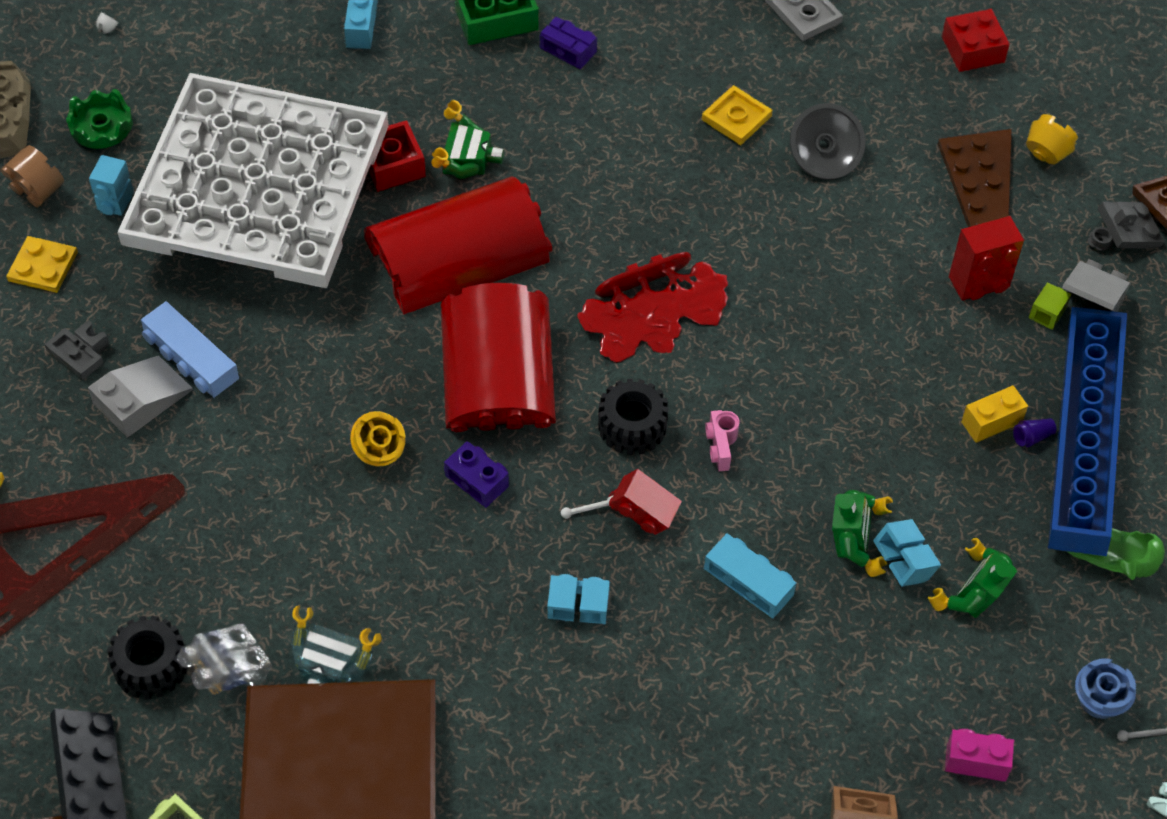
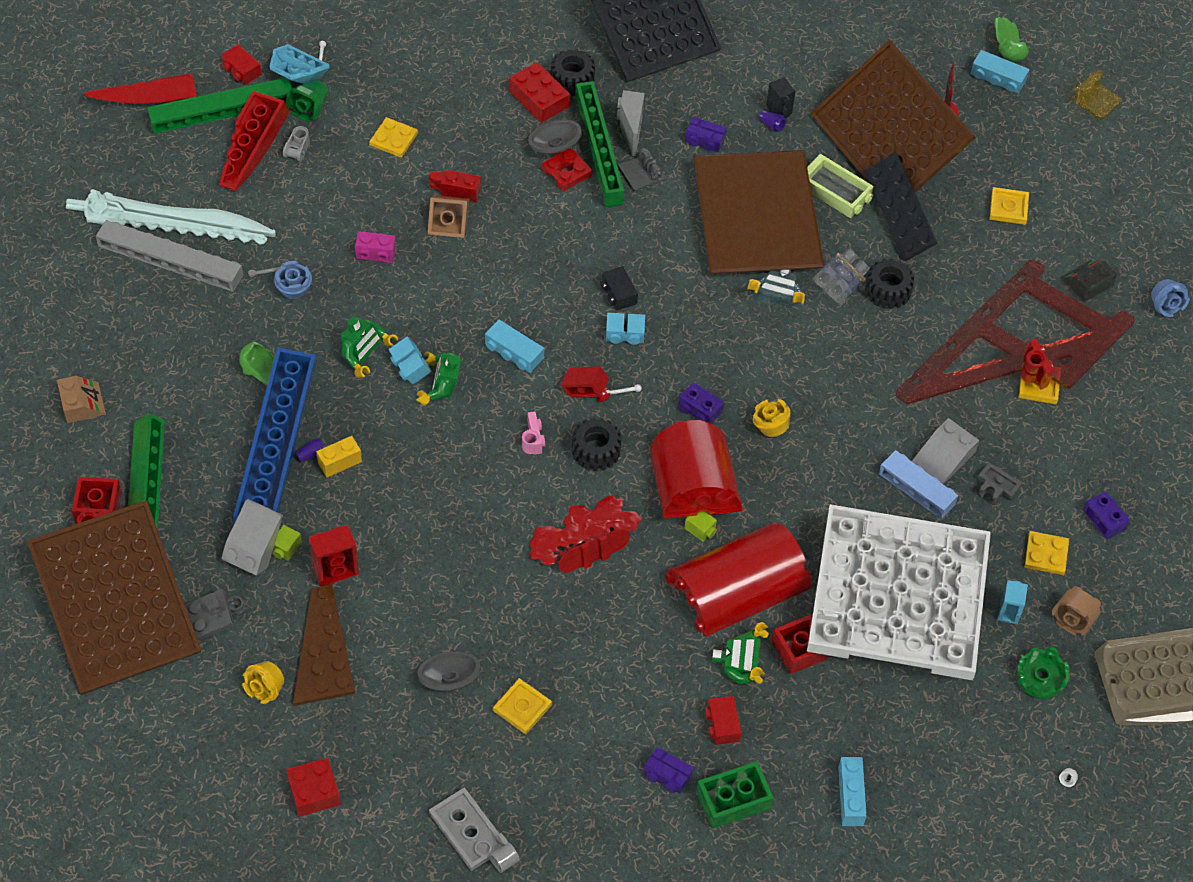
camera: 175 degrees right, 0 degrees up
(498, 87) = (724, 720): none -> red brick
(583, 669) = (619, 288): none -> black brick

